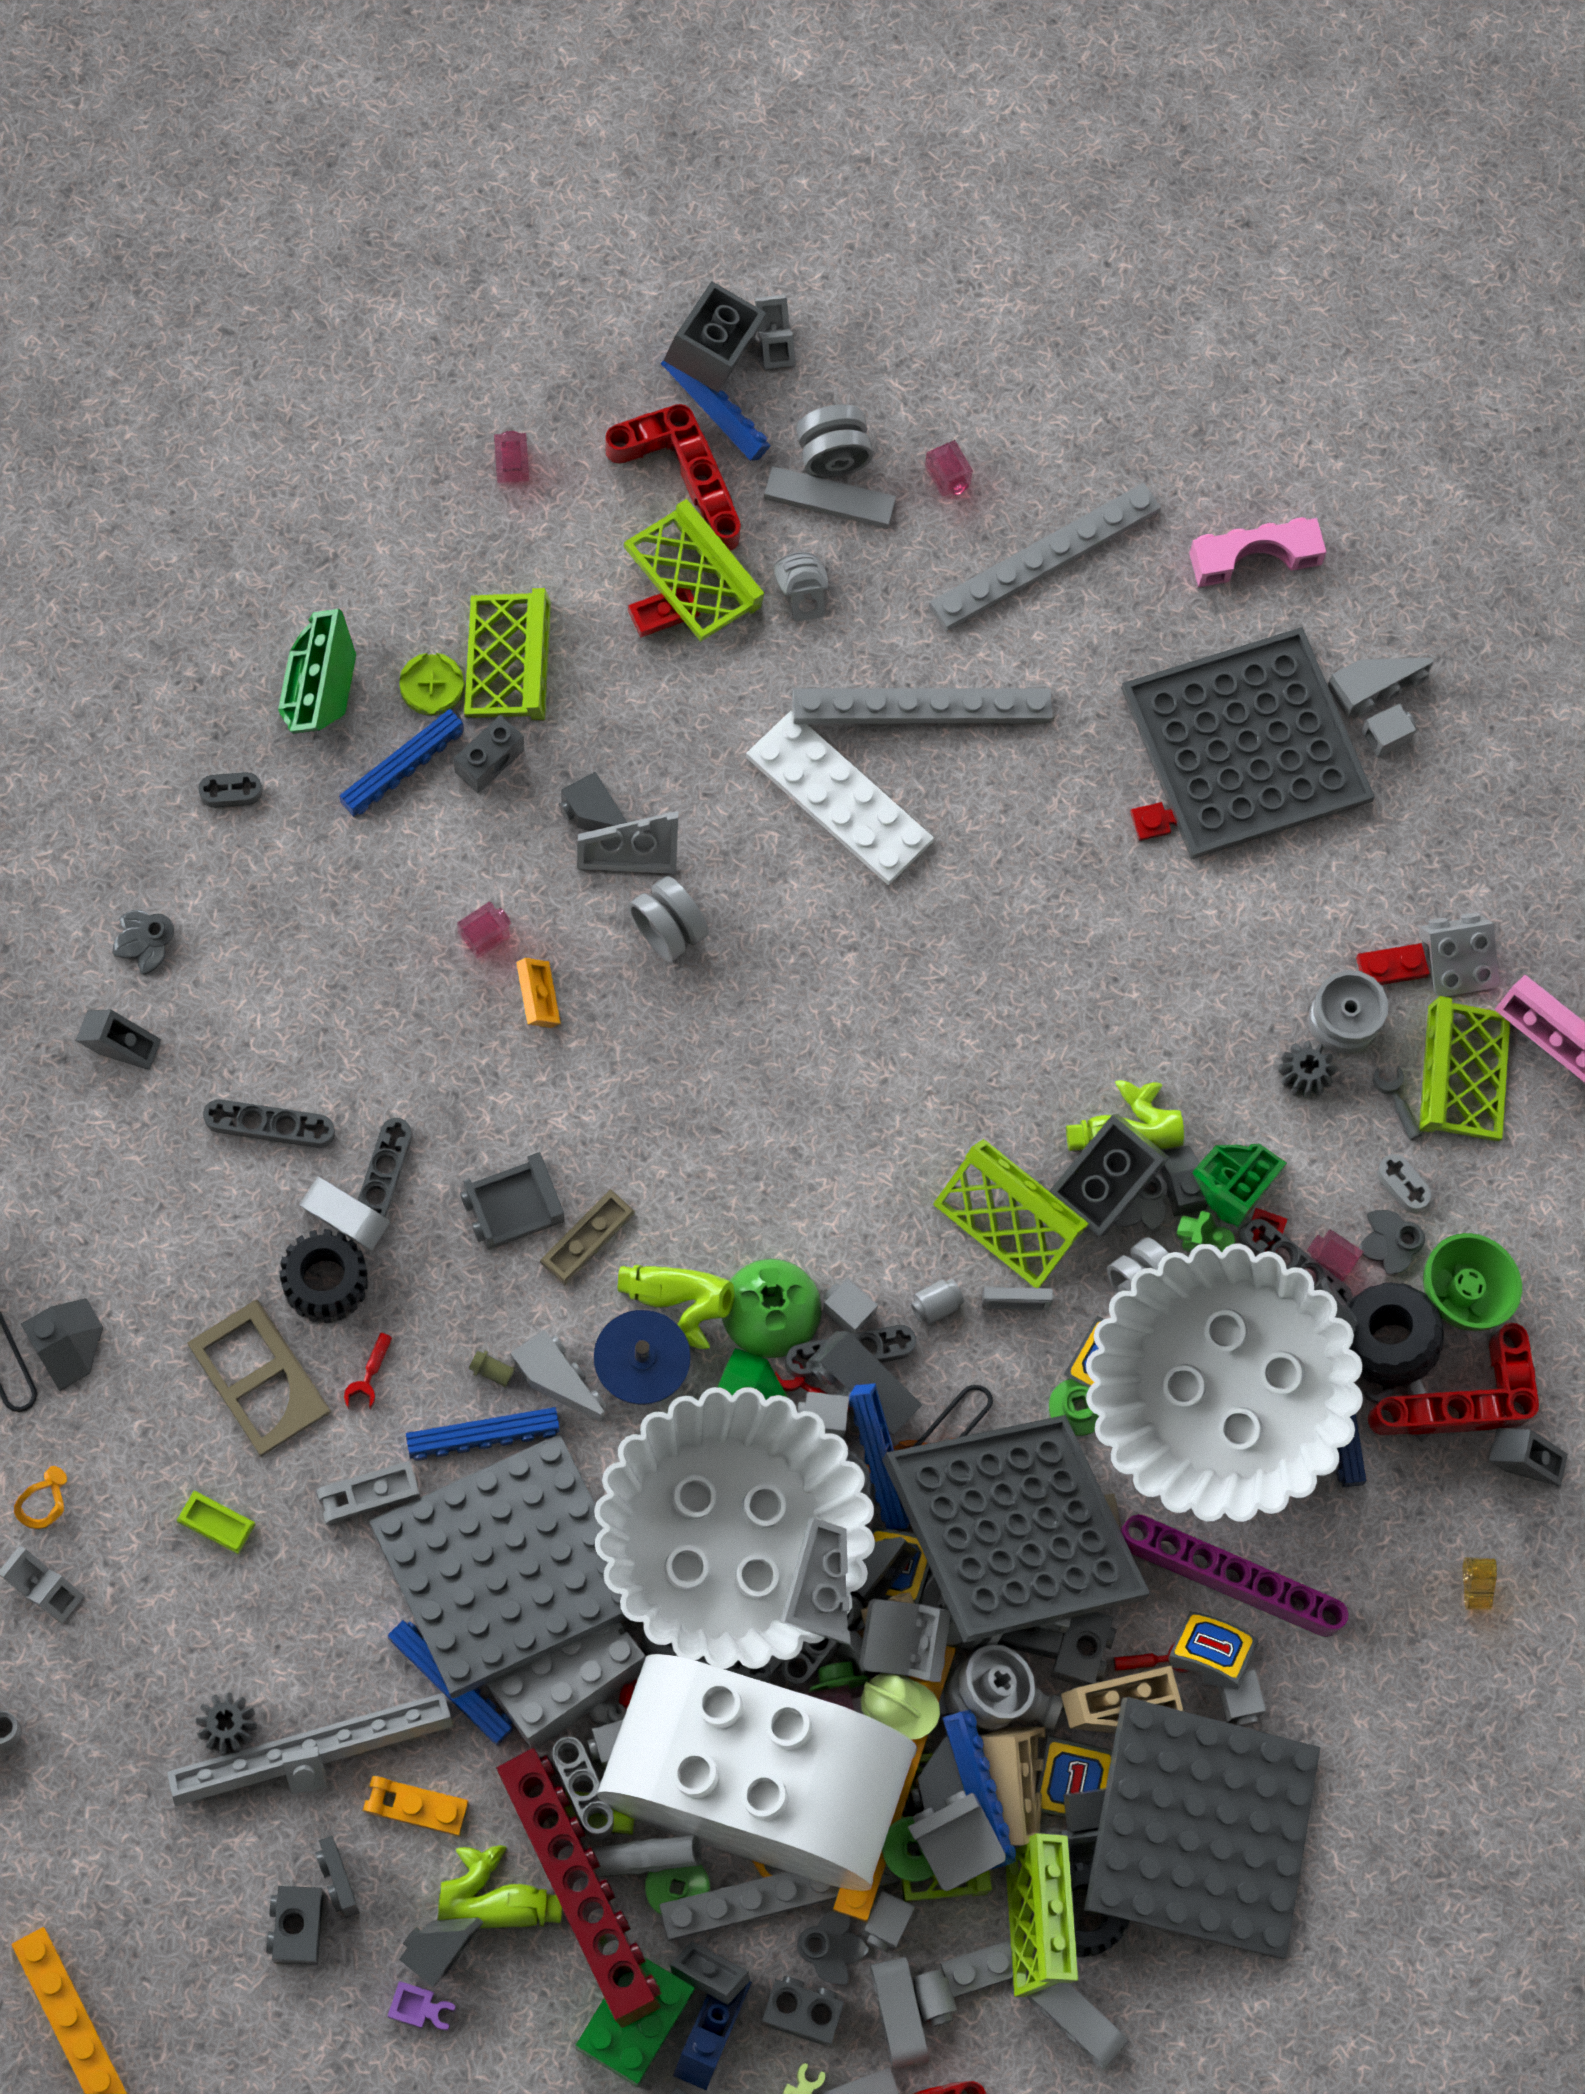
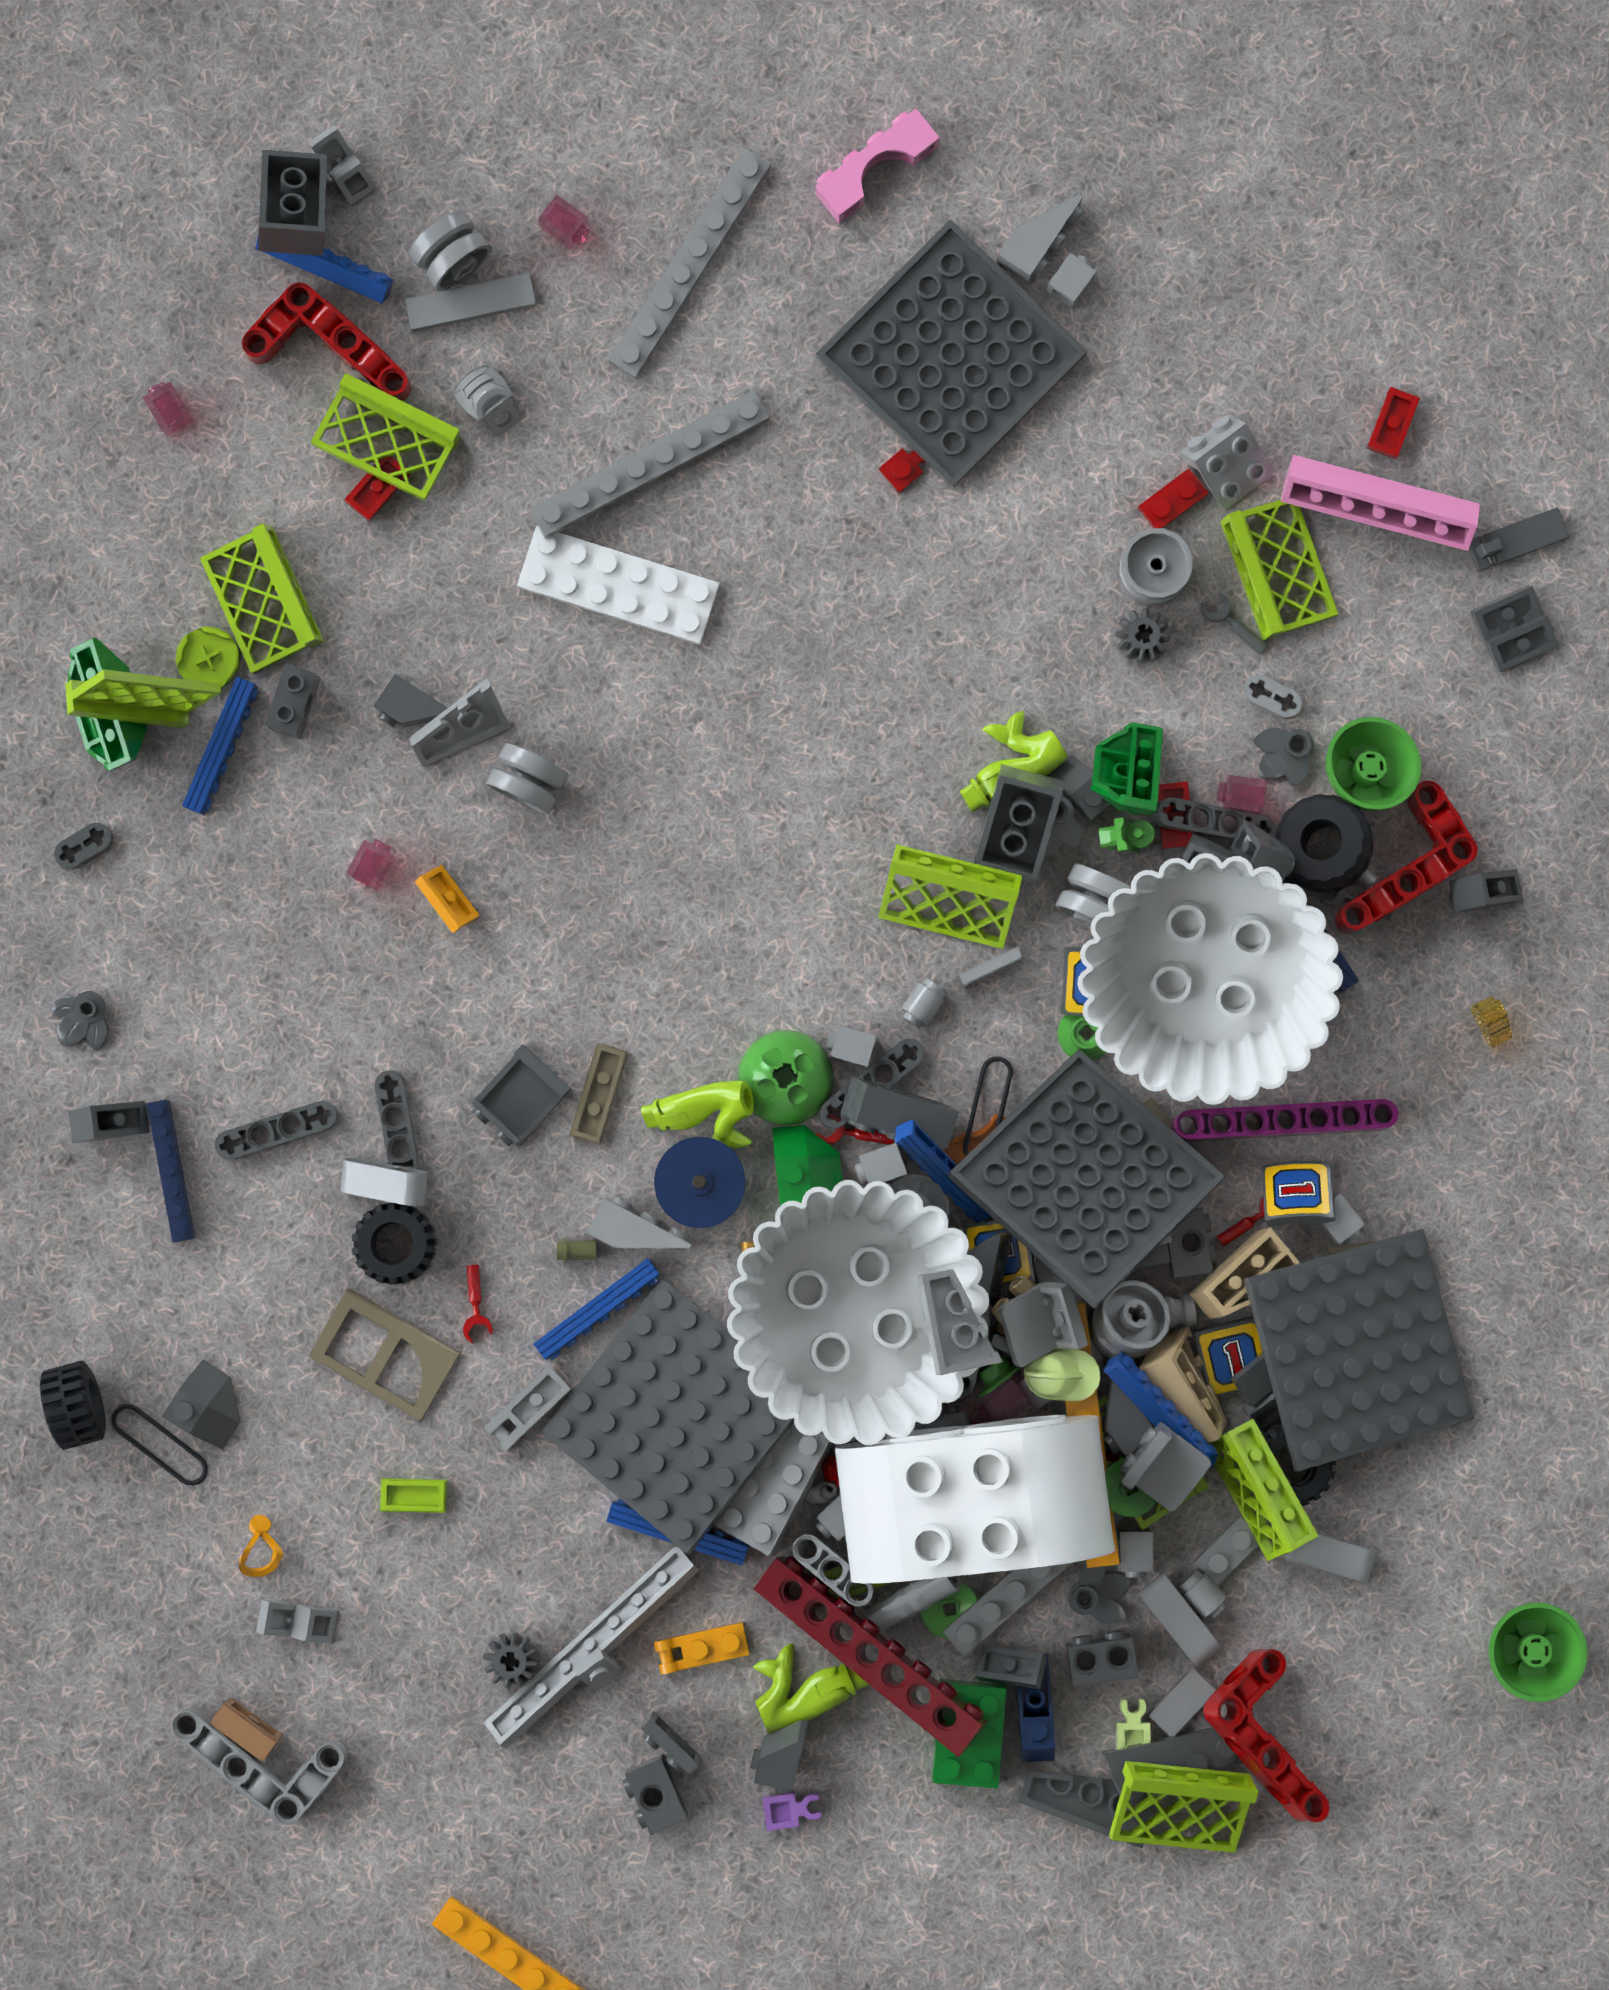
camera: 15 degrees left, 15 degrees up
(151, 1112) = (170, 1171): none -> dark blue piece
(339, 677) = (138, 698): none -> lime fence

